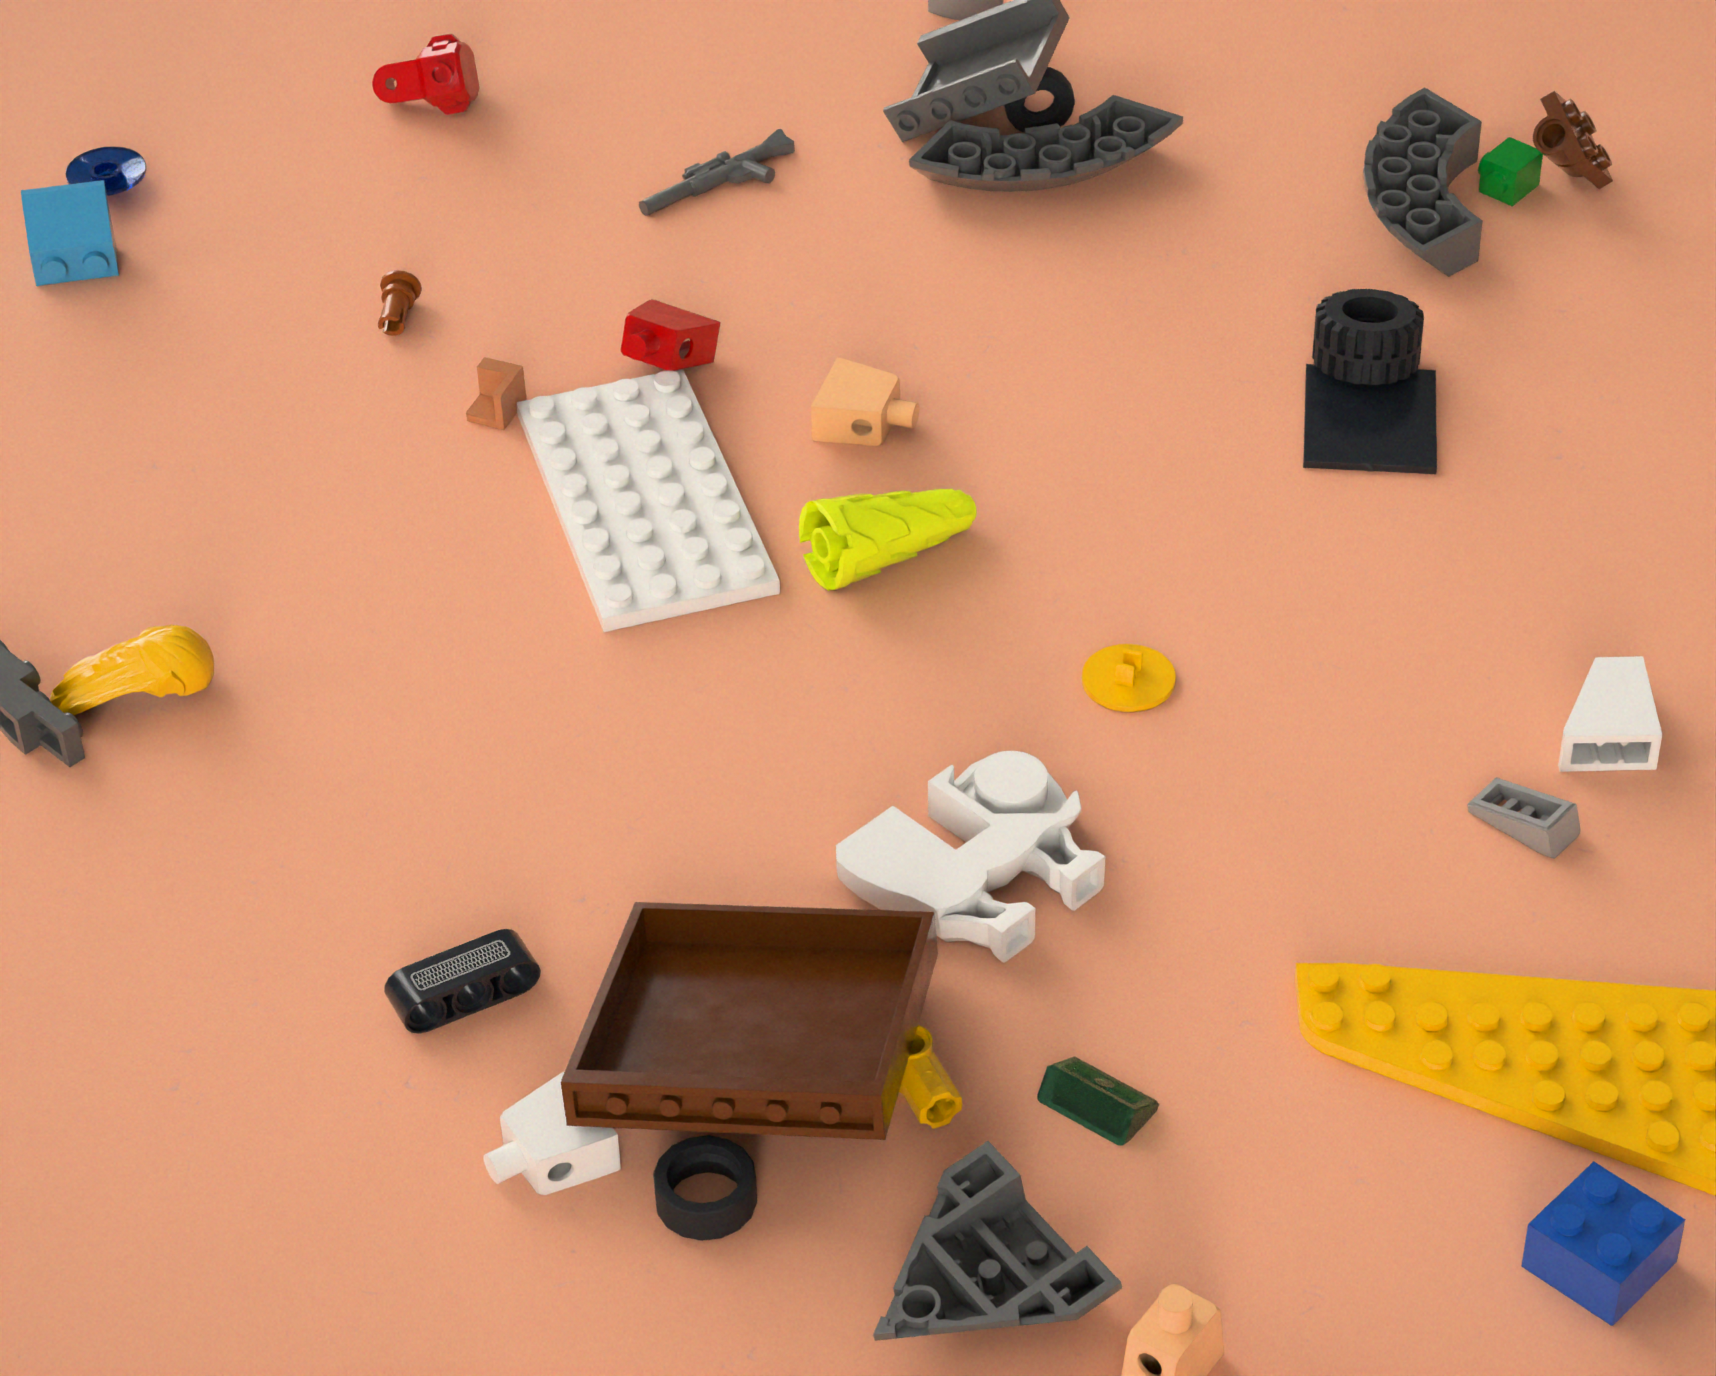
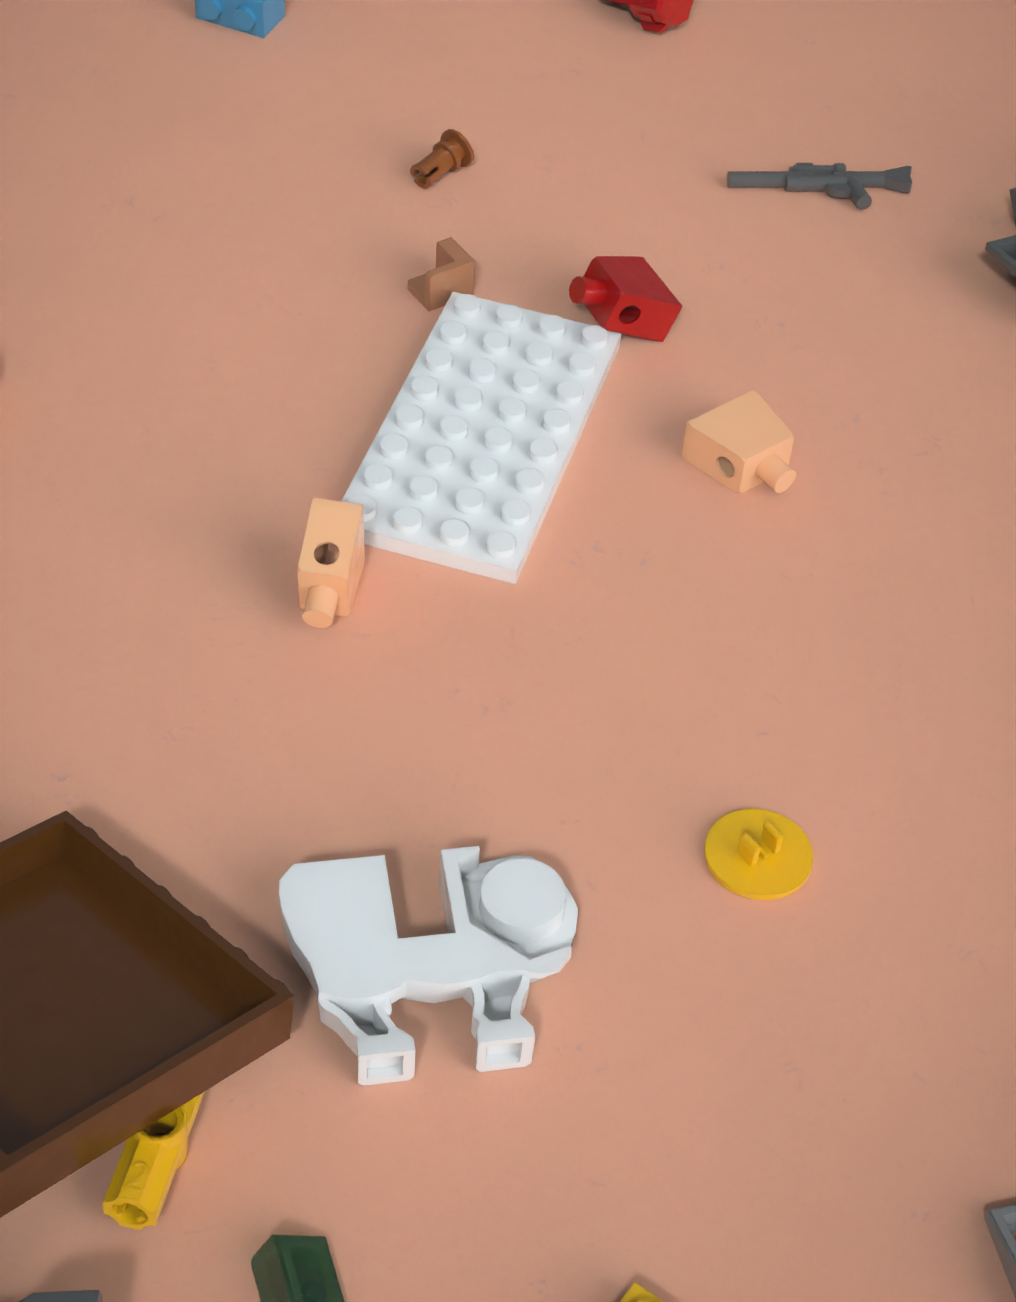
camera: 30 degrees right, 5 degrees up
(648, 658) = (328, 577): none -> light nougat torso
(868, 532) = (625, 569): neon yellow cone -> none

